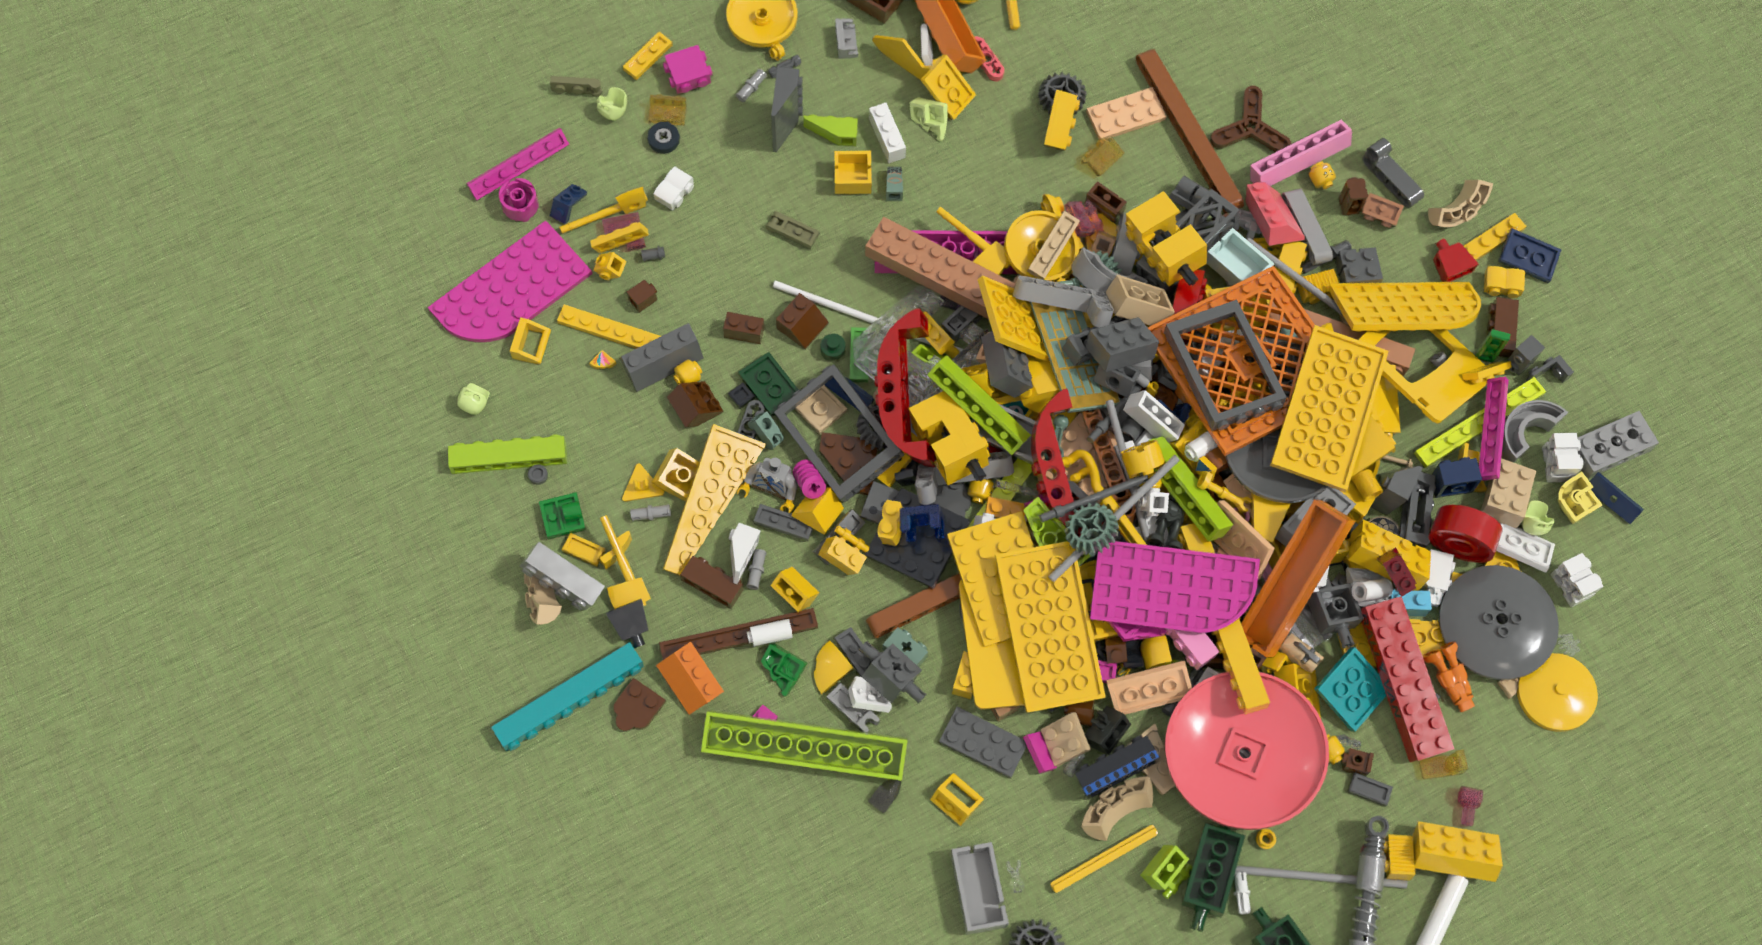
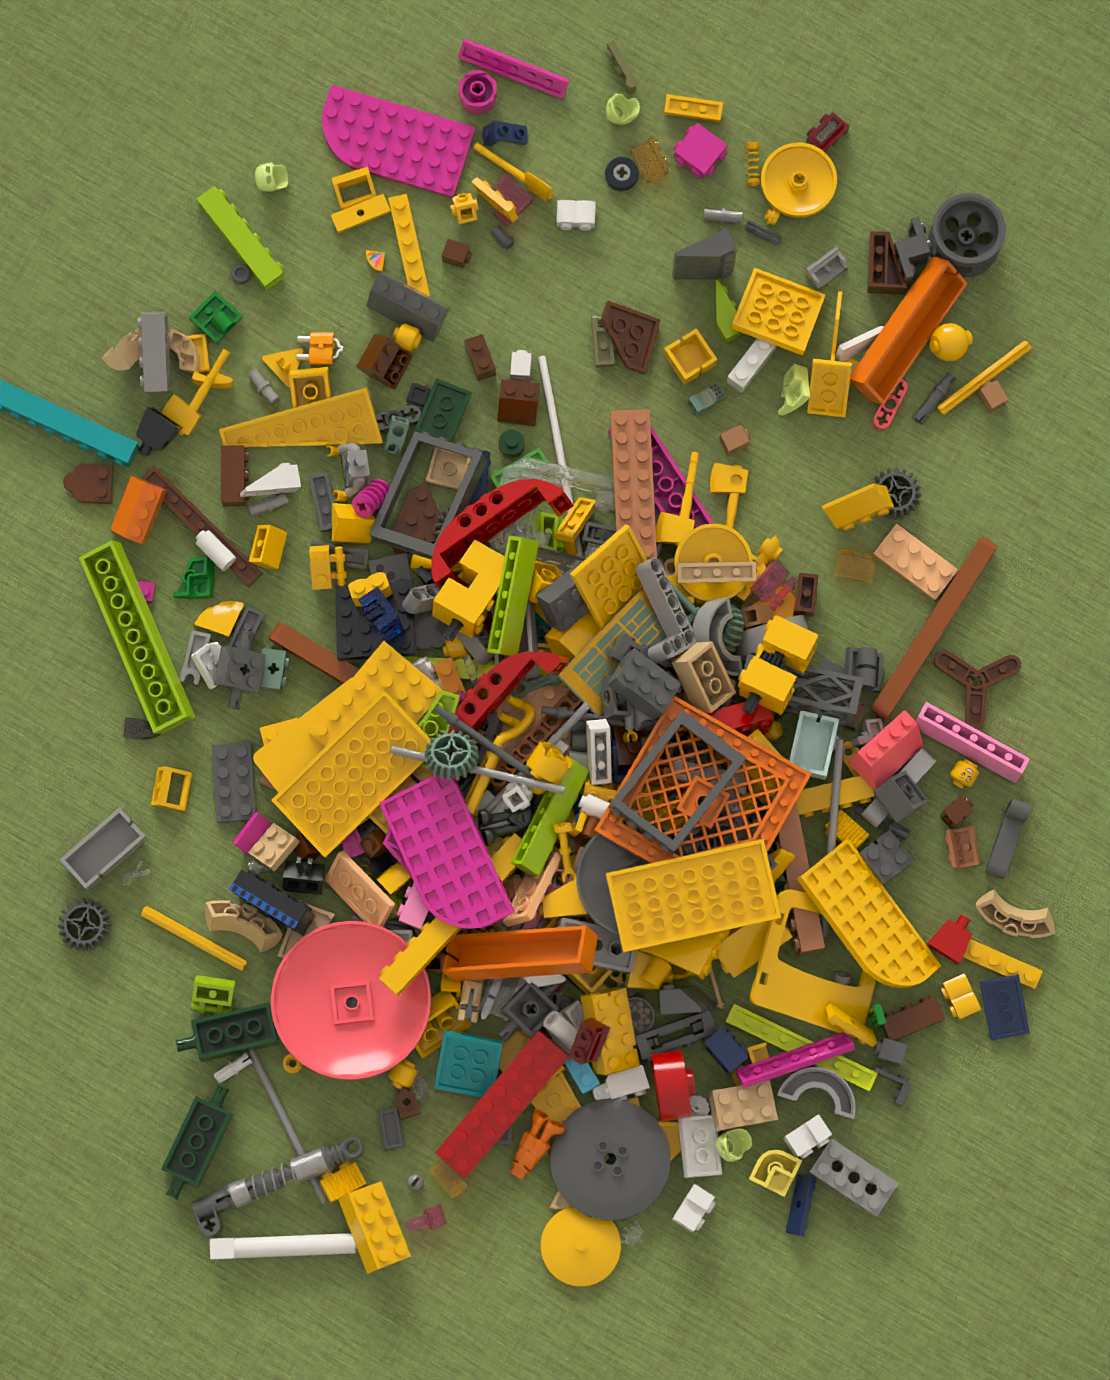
camera: 60 degrees right, 10 degrees up
(556, 339) = (349, 217): none -> yellow tile
(579, 557) = (185, 350): none -> tan tile
(648, 446) = (321, 348): none -> light orange piece
(739, 48) = (752, 146): none -> yellow piece
(772, 302) = (520, 365): none -> white brick
(803, 204) = (631, 334): none -> reddish brown plate
(859, 88) = (778, 311): none -> yellow plate
(942, 181) = (735, 439): none -> medium nougat brick
(973, 205) = (731, 481): none -> yellow piece
(1001, 22) = (937, 394): none -> dark grey pin
(1321, 224) = (900, 796): none -> dark grey slope
(1425, 797) = (418, 1186): none -> light grey hinge

